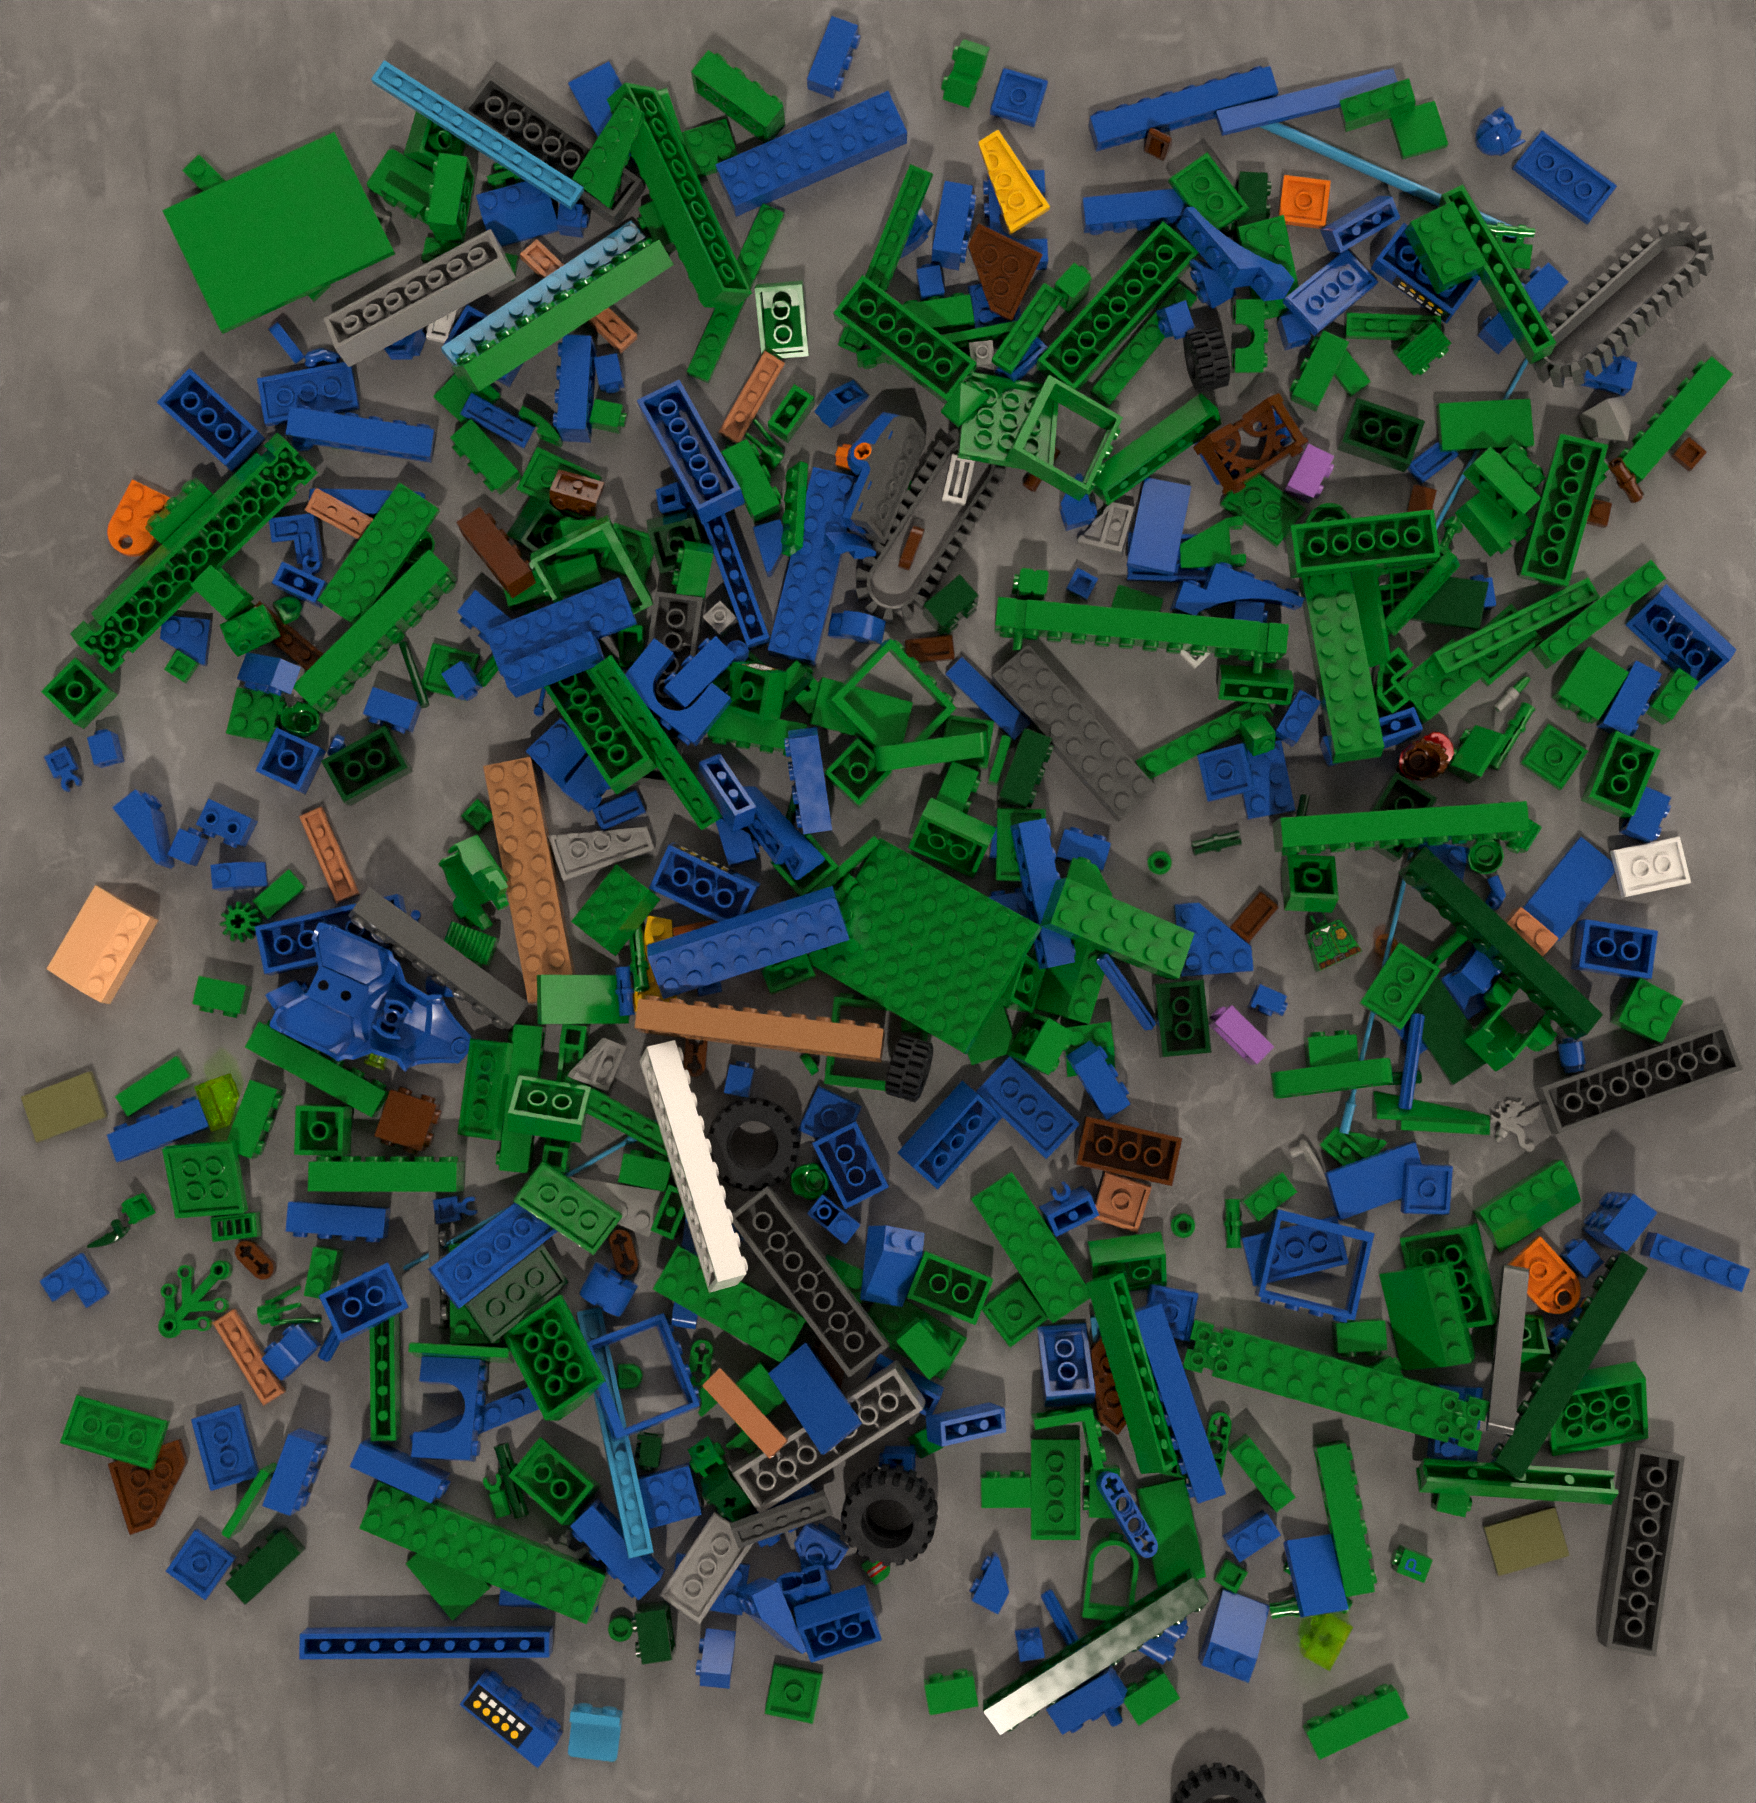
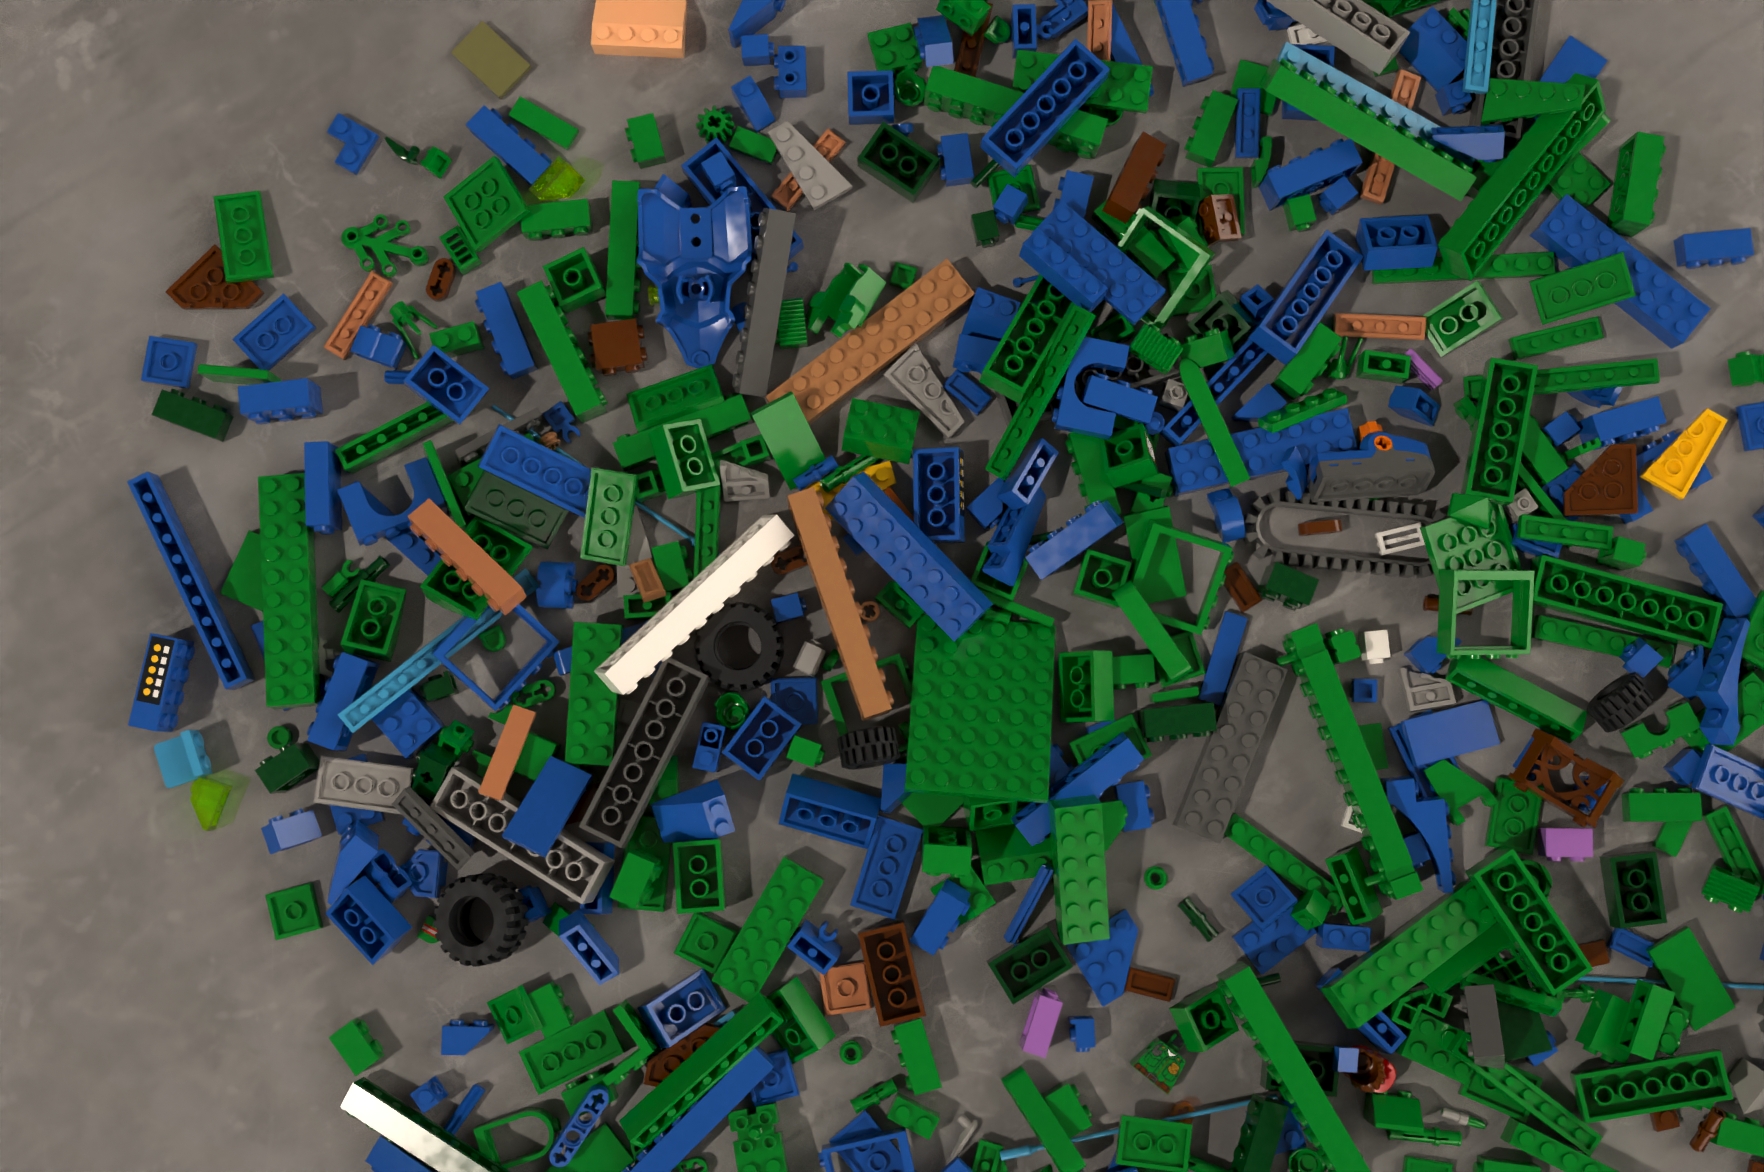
camera: 60 degrees right, 0 degrees up
(291, 940) = (719, 172): none -> blue brick
(332, 852) = (812, 172): none -> light grey wing
(389, 603) = (1044, 108): none -> blue brick
(466, 1229) = (549, 440): none -> medium nougat bush
(472, 716) = (985, 229): none -> dark green brick
(540, 1361) = (467, 557): none -> nougat brick
(624, 221) = (1479, 142): none -> blue slope
(647, 1200) = (647, 580): none -> medium nougat tile
(647, 1725) = (209, 801): none -> clear neon green slope
(669, 614) = (1155, 348): none -> green brick
(681, 342) = (1396, 242): none -> blue brick
(764, 597) = (1213, 422): none -> green piece
(782, 998) = (876, 610): none -> medium nougat bush
(797, 1082) = (810, 658): none -> light grey brick
(810, 195) = (1582, 288): none -> green tile
(813, 379) = (1423, 370): none -> medium lavender tile
(844, 242) = (1556, 338): none -> green tile
(883, 1129) = (805, 751): none -> green brick
(956, 1063) = (893, 787): none -> blue slope
(959, 273) = (1581, 449): none -> green tile
(994, 1526) = (514, 1014): none -> green tile
(1045, 554) = (1374, 646): none -> white brick
(1215, 1166) = (916, 1056): none -> green brick
(1407, 772) = (1345, 1059): none -> tile
(1437, 633) = (1483, 1026): none -> dark grey slope

